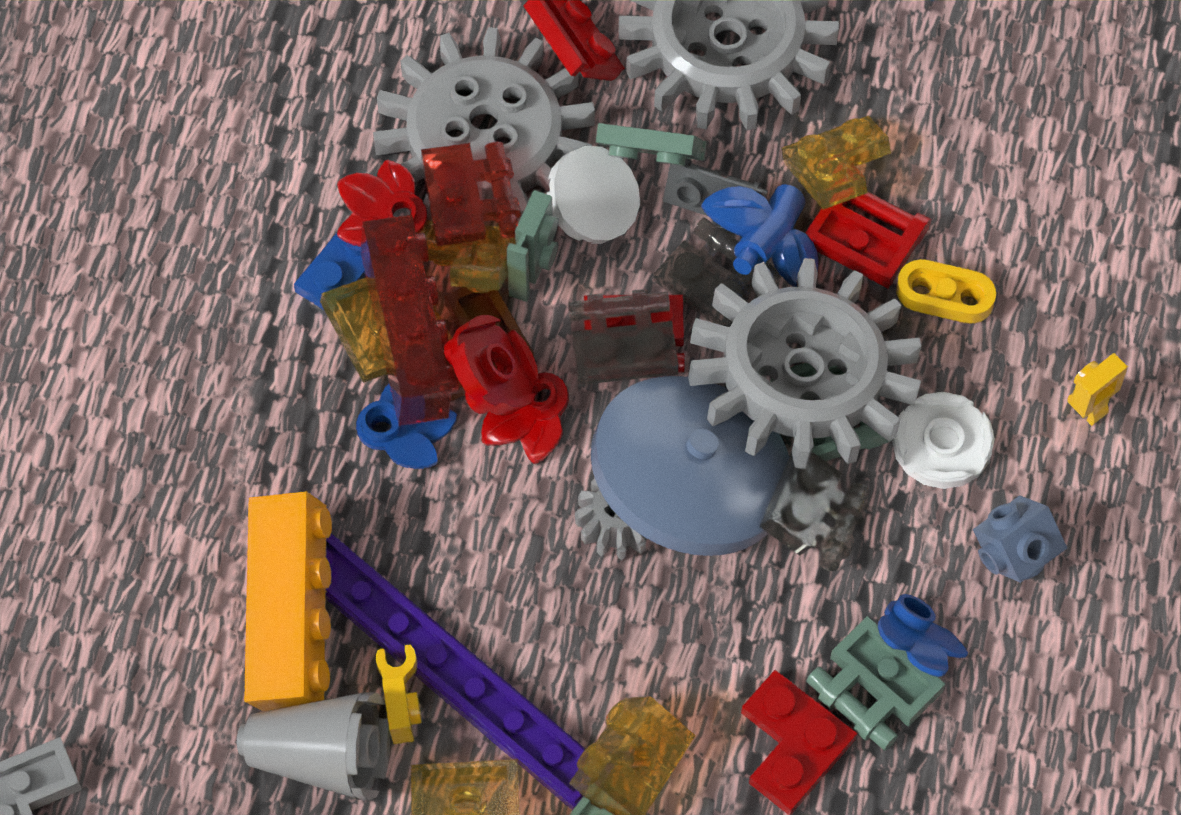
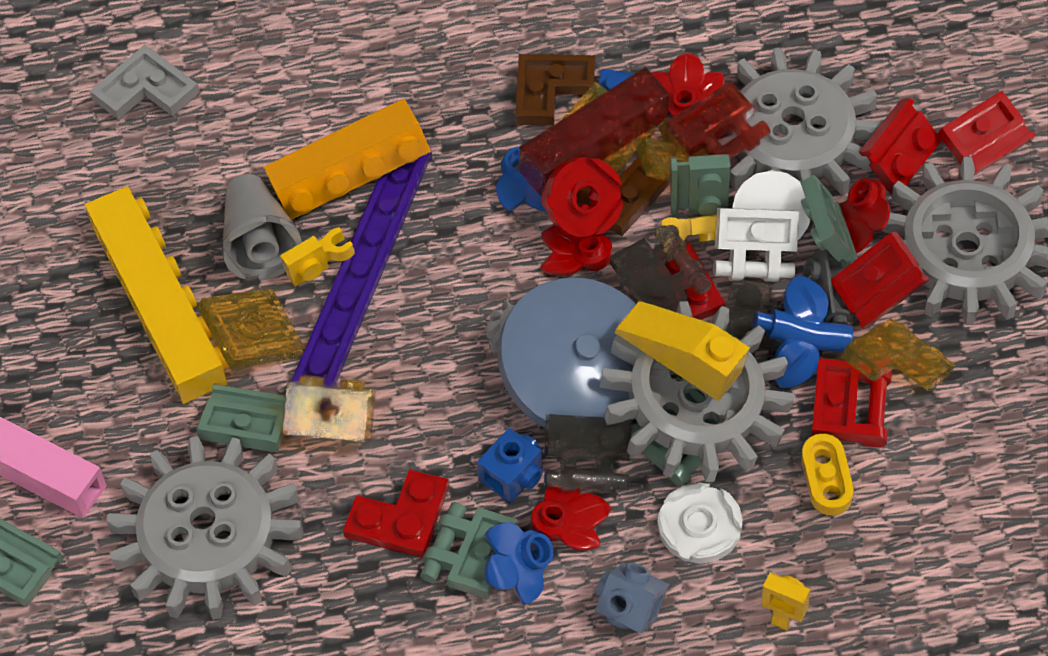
camera: 70 degrees right, 5 degrees down
(274, 351) = (545, 76): none -> reddish brown plate
(572, 269) = (703, 226): none -> yellow plate
(620, 221) = (756, 230): none -> white plate
(657, 105) = (865, 211): none -> red plate
(746, 129) = (879, 279): none -> red plate
(771, 337) = (686, 346): none -> yellow slope
(792, 594) = (511, 465): none -> blue brick
(881, 557) = (574, 515): none -> red plate

